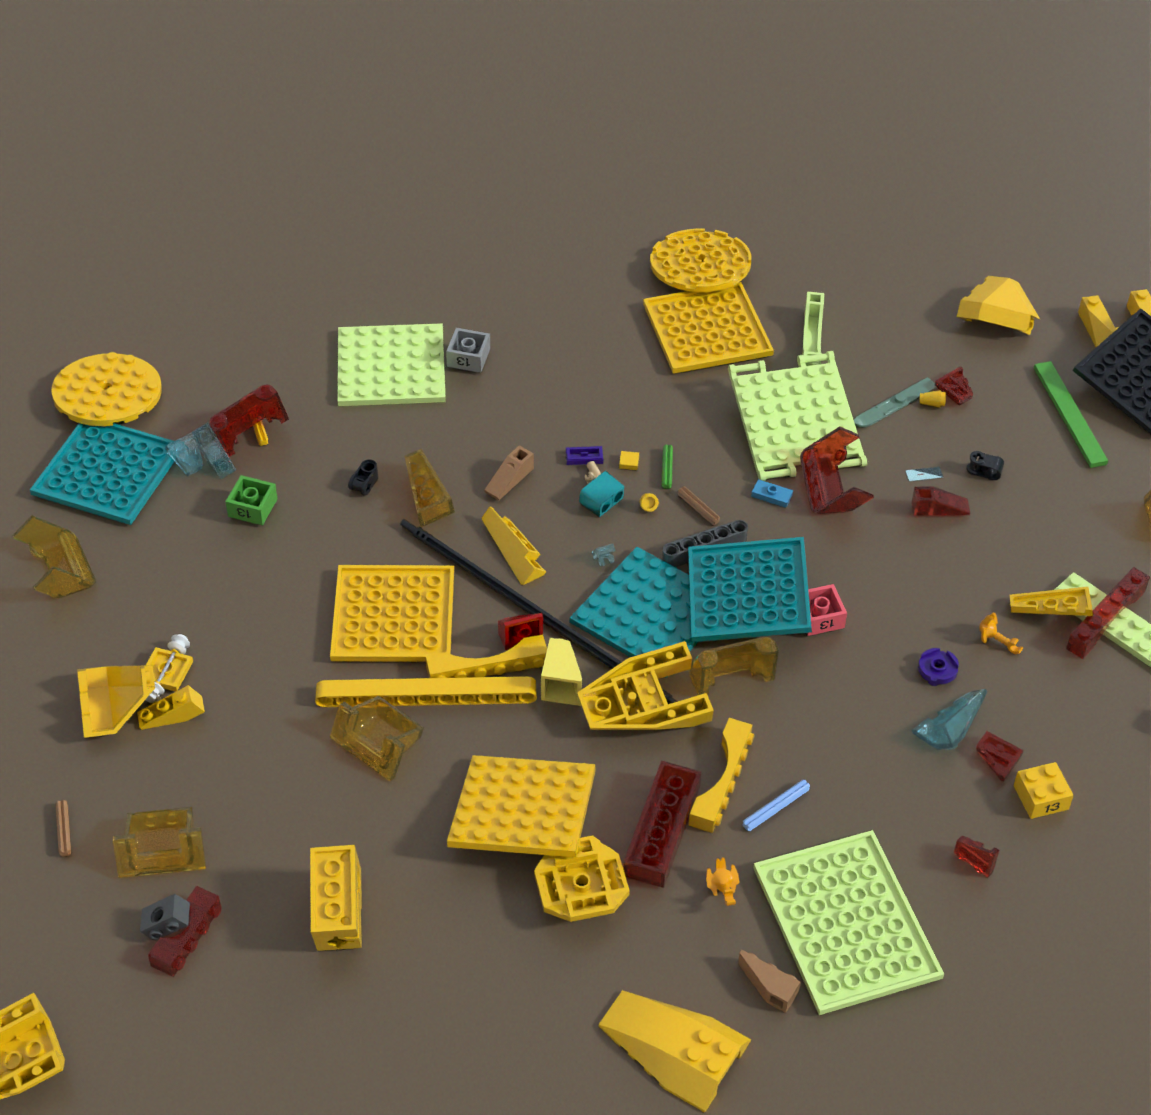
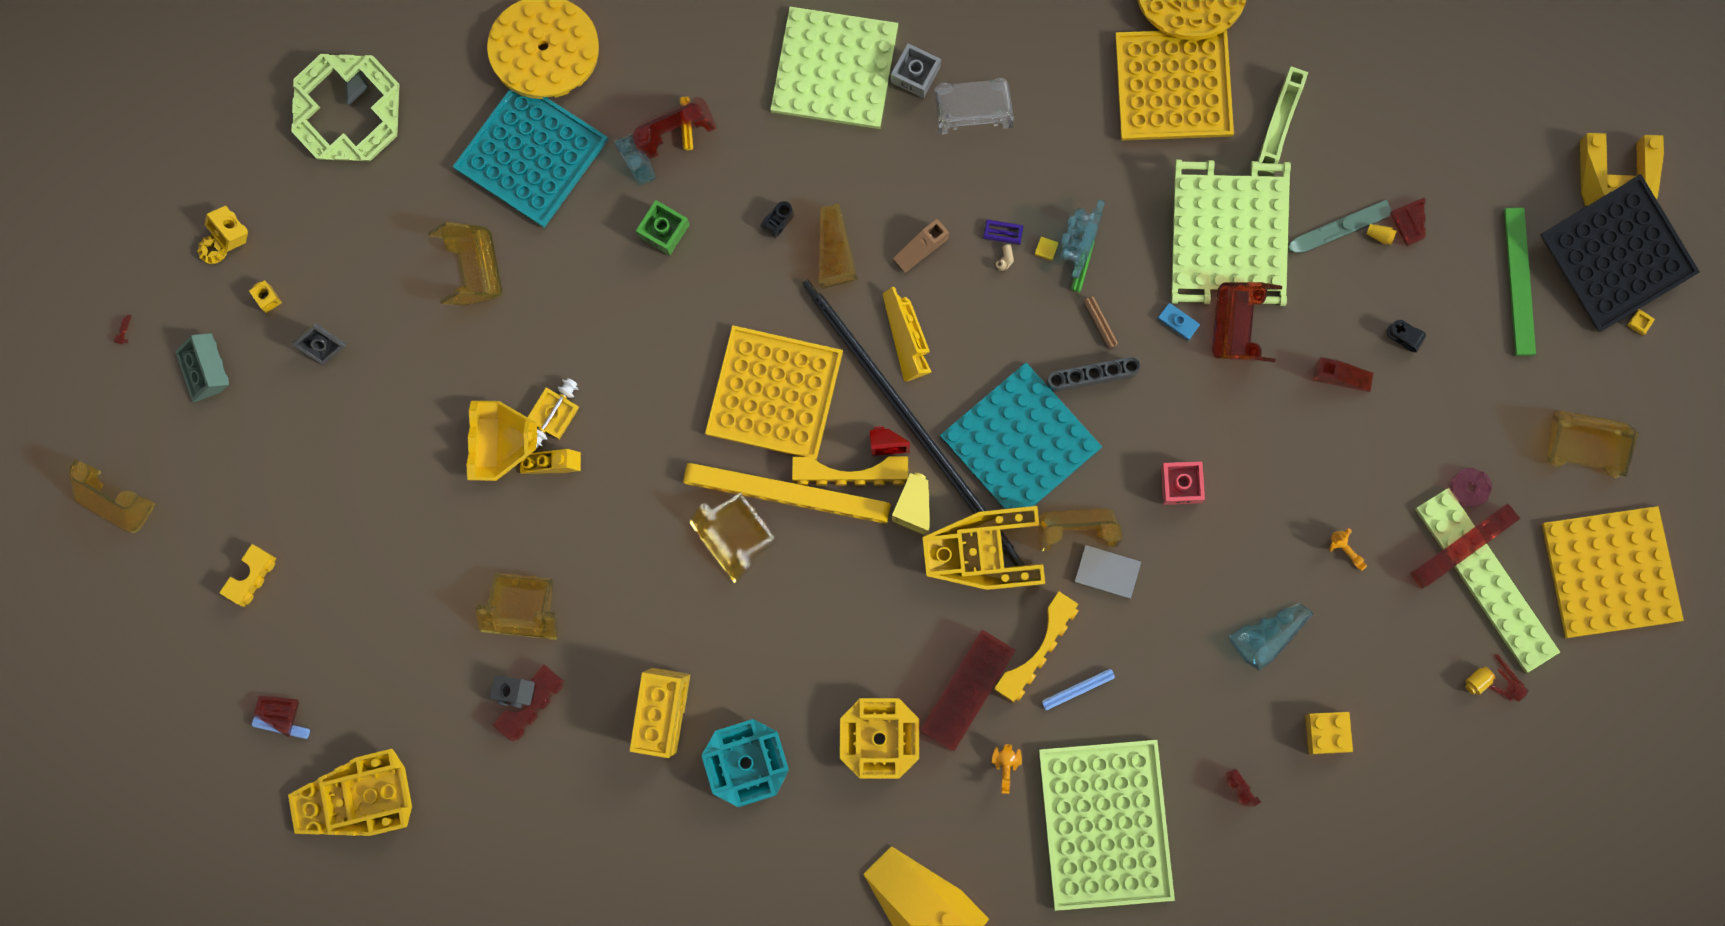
camera: 20 degrees right, 30 degrees up
(63, 829) = (438, 569): medium nougat axle -> none
(186, 454) = (607, 152): clear light blue wing -> none
(445, 914) = (724, 757): none -> teal piece
(522, 806) = (845, 647): yellow plate -> none
(527, 363) = (973, 104): none -> clear windscreen
(601, 494) = (1007, 290): teal piece -> none
(604, 552) = (991, 363): clear light blue tile -> none
(648, 502) = (1051, 310): yellow tile -> none
(652, 439) = (1077, 226): none -> clear light blue piece
(749, 589) = (1118, 449): teal plate -> none
(772, 700) = (1107, 572): none -> light grey tile
(772, 984) = (1022, 876): medium nougat slope -> none
(924, 473) = (1341, 327): clear light blue sticker -> none
(938, 675) = (1286, 576): dark purple plate -> none
(998, 754) = (1301, 682): clear red wing -> none
(1000, 303) = (1494, 123): yellow panel -> none
(1059, 602) = (1420, 527): yellow wing -> none
(1094, 577) = (1472, 476): none -> clear pink plate

